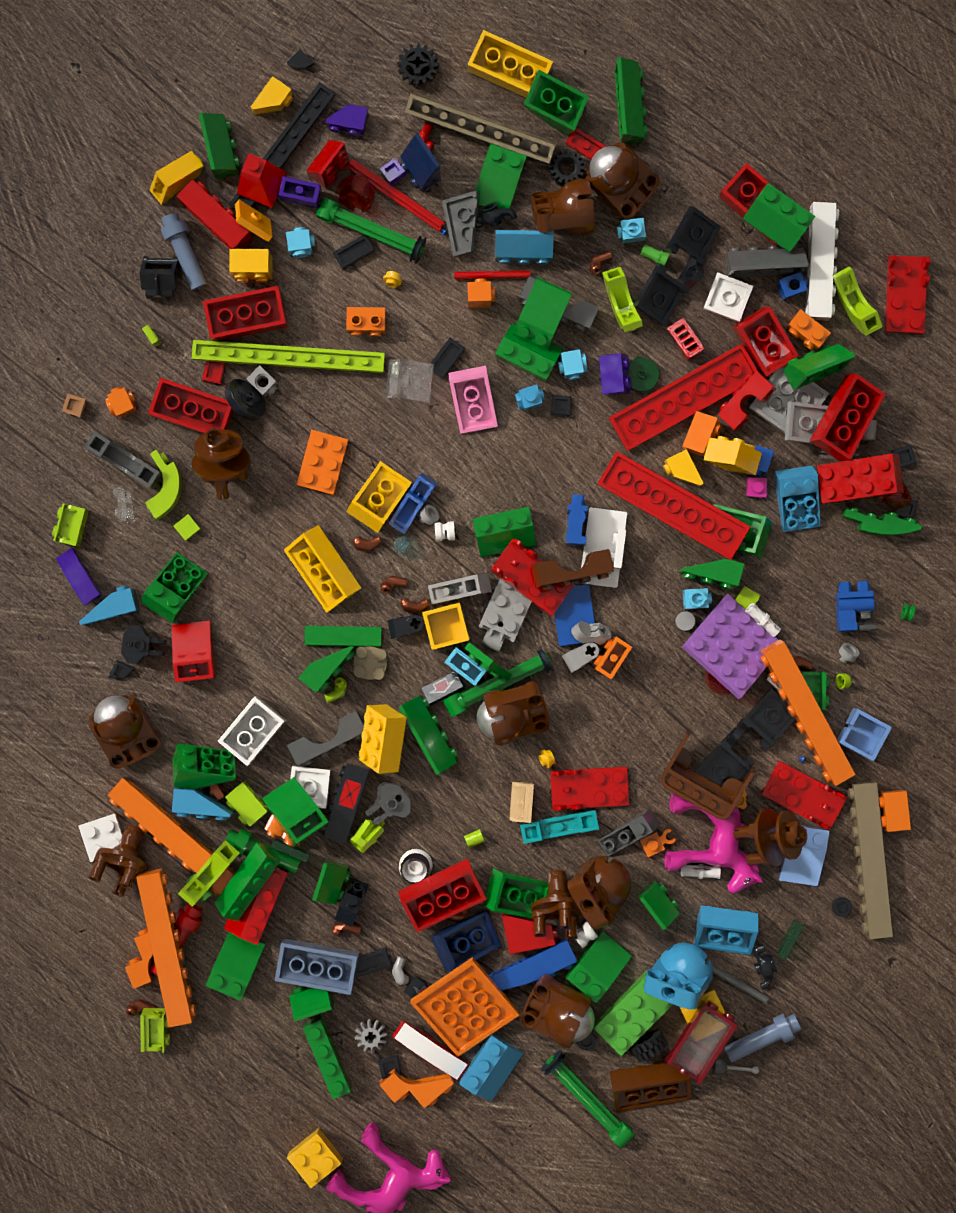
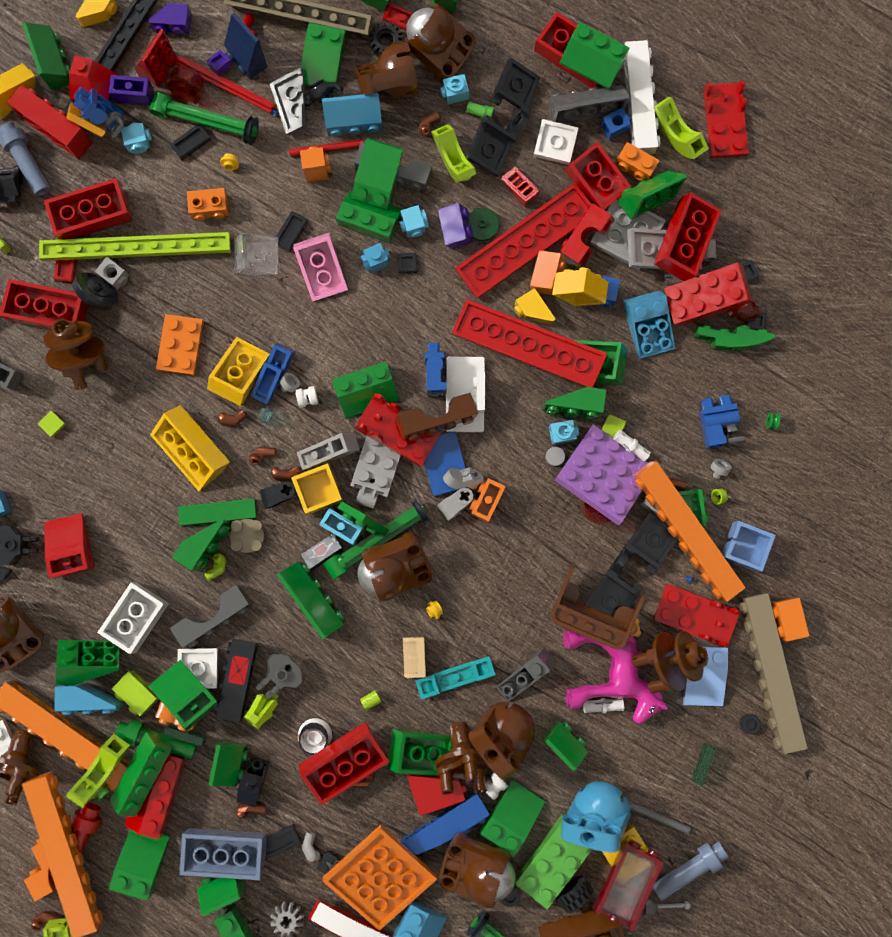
camera: 10 degrees left, 5 degrees down
(171, 490) = (31, 387): lime arch -> none
(173, 587) = (42, 485): green slope -> none
(216, 791) = (102, 683): copper bracket -> none
(251, 265) = (89, 162): yellow piece -> none
(268, 214) = (99, 110): none -> blue hips
(382, 738) = (264, 609): yellow brick -> none
(465, 940) = (373, 807): dark blue slope -> none
(589, 788) = (481, 634): red hinge -> none
(654, 843) = (552, 682): orange plate -> none
(726, 930) = (637, 762): dark azure slope -> none
(756, 487) = (607, 318): dark pink plate -> none
(765, 965) = (681, 795): black piece -> none

